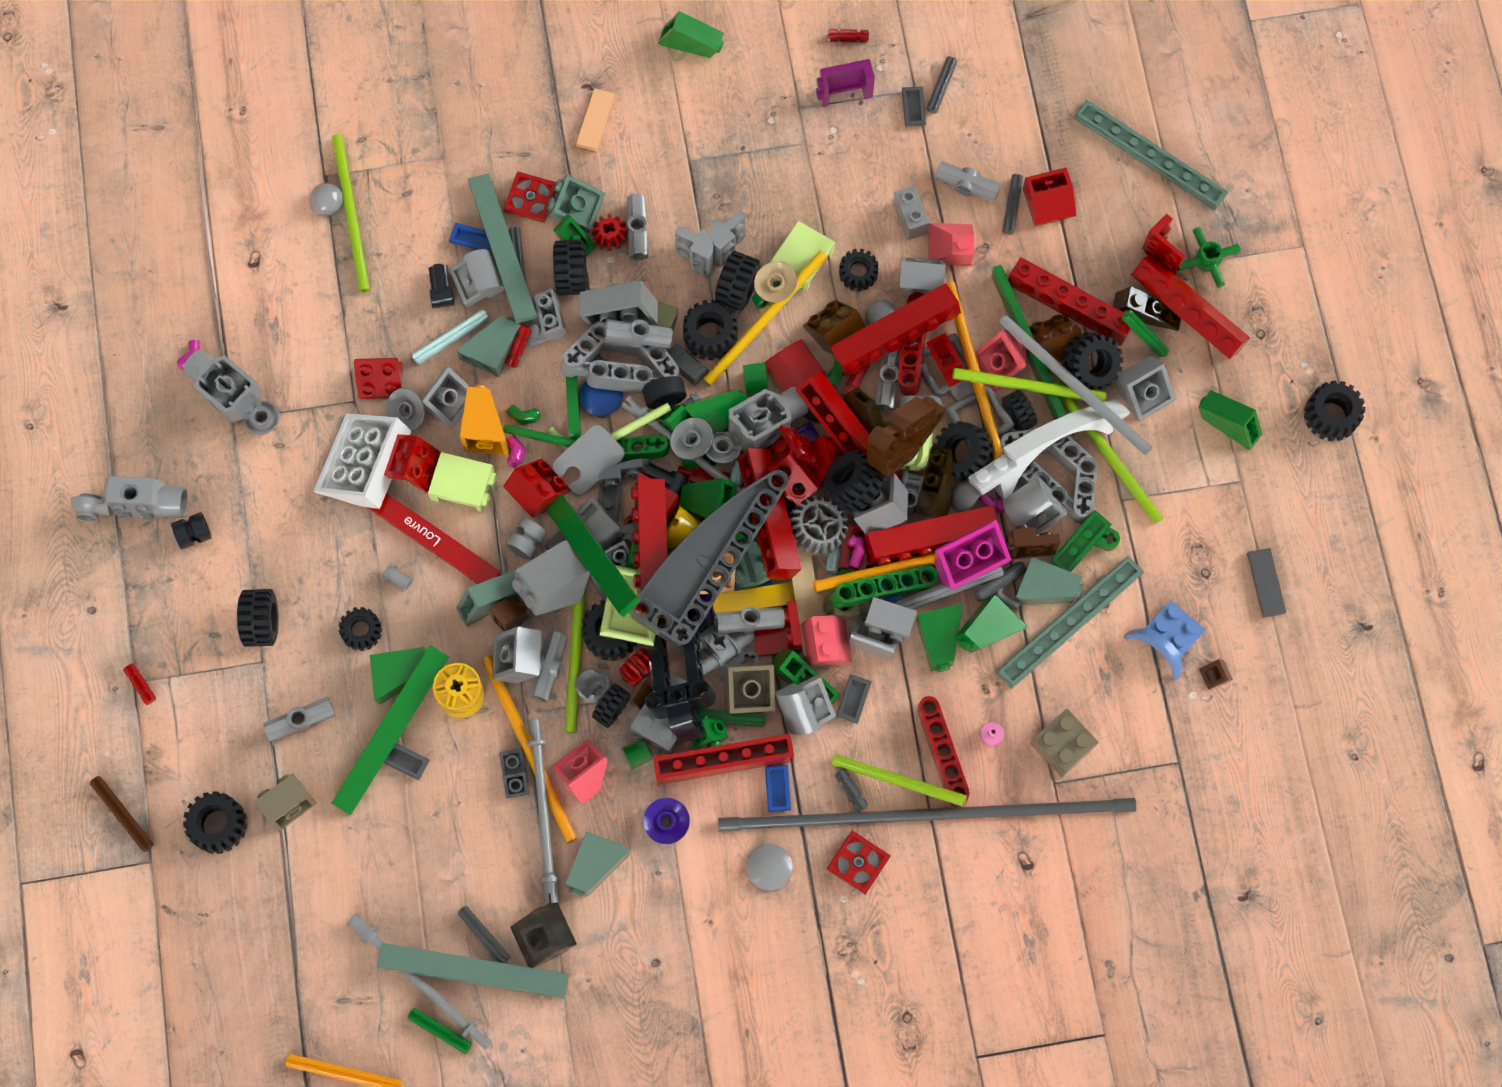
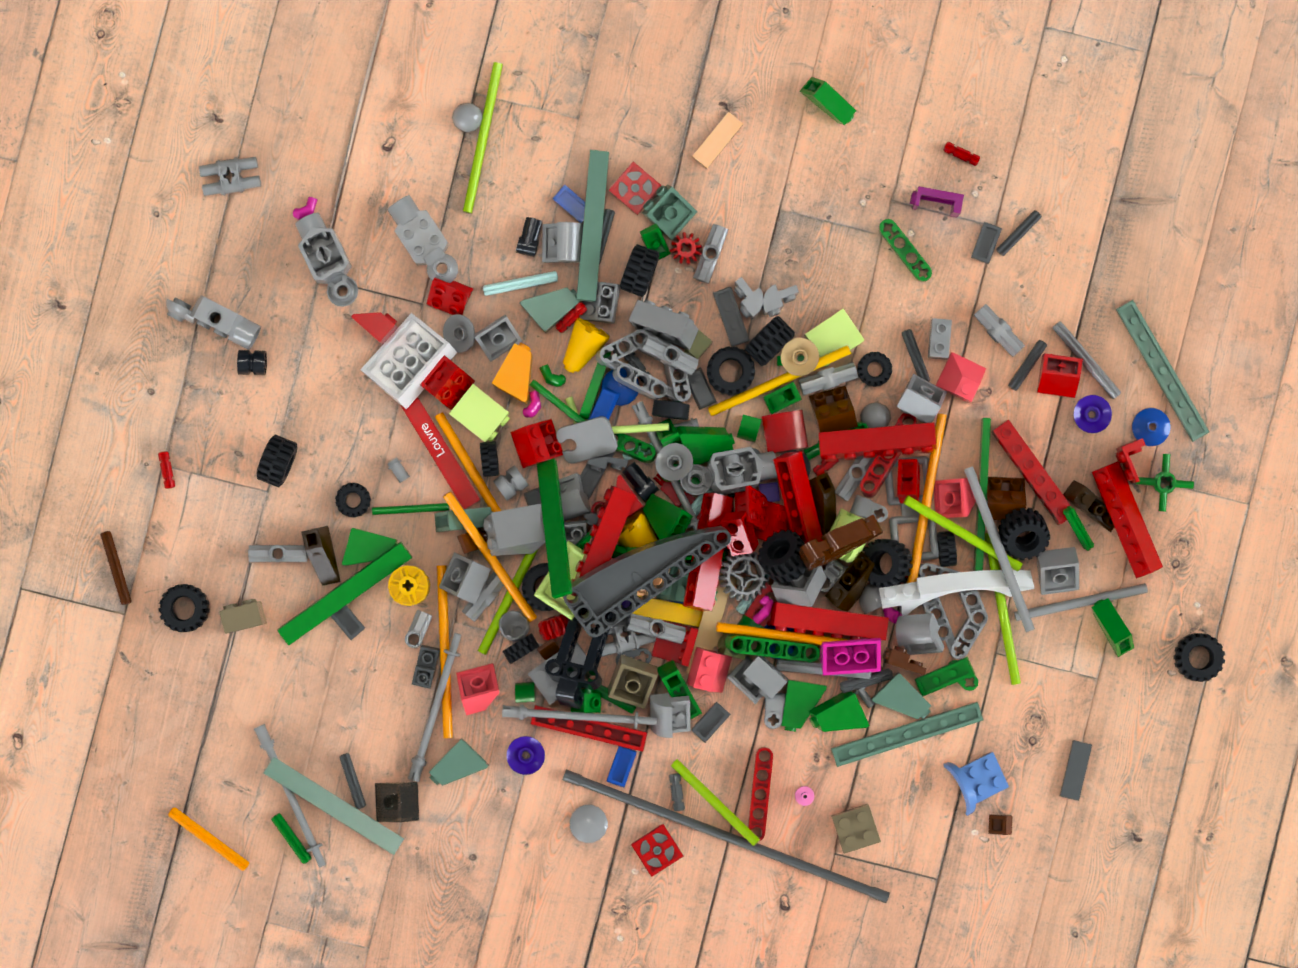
camera: 25 degrees right, 15 degrees up
(84, 349) = (224, 185): none -> light grey pin
(310, 434) = (377, 324): none -> red slope
(325, 331) = (422, 239): none -> light grey brick
(347, 699) = (321, 554): none -> dark brown slope
(427, 613) = (410, 509): none -> green bar
(465, 536) = (467, 462): none -> light orange piece
(488, 735) = (418, 626): none -> light grey piece
(491, 521) = (489, 459): none -> black tyre
(536, 621) = (492, 560): none -> light orange piece
(542, 367) = (583, 345): none -> yellow cone
(592, 414) = (605, 403): none -> blue tile
(642, 769) = (523, 712): none -> light grey bar
(685, 279) = (731, 316): none -> dark grey tile
(777, 333) = (782, 398): none -> green slope
(815, 298) = (828, 378): none -> light grey piece
(837, 143) = (908, 248): none -> green beam
(892, 239) = (915, 354): none -> dark grey axle
(915, 653) = (774, 707): none -> light grey piece
(1076, 177) = (1088, 361): none -> light grey axle
(1103, 213) = (1102, 412): none -> dark purple dish
(1156, 210) = (1141, 426): none -> blue dish
(1185, 409) = (1084, 601): none -> light grey piece

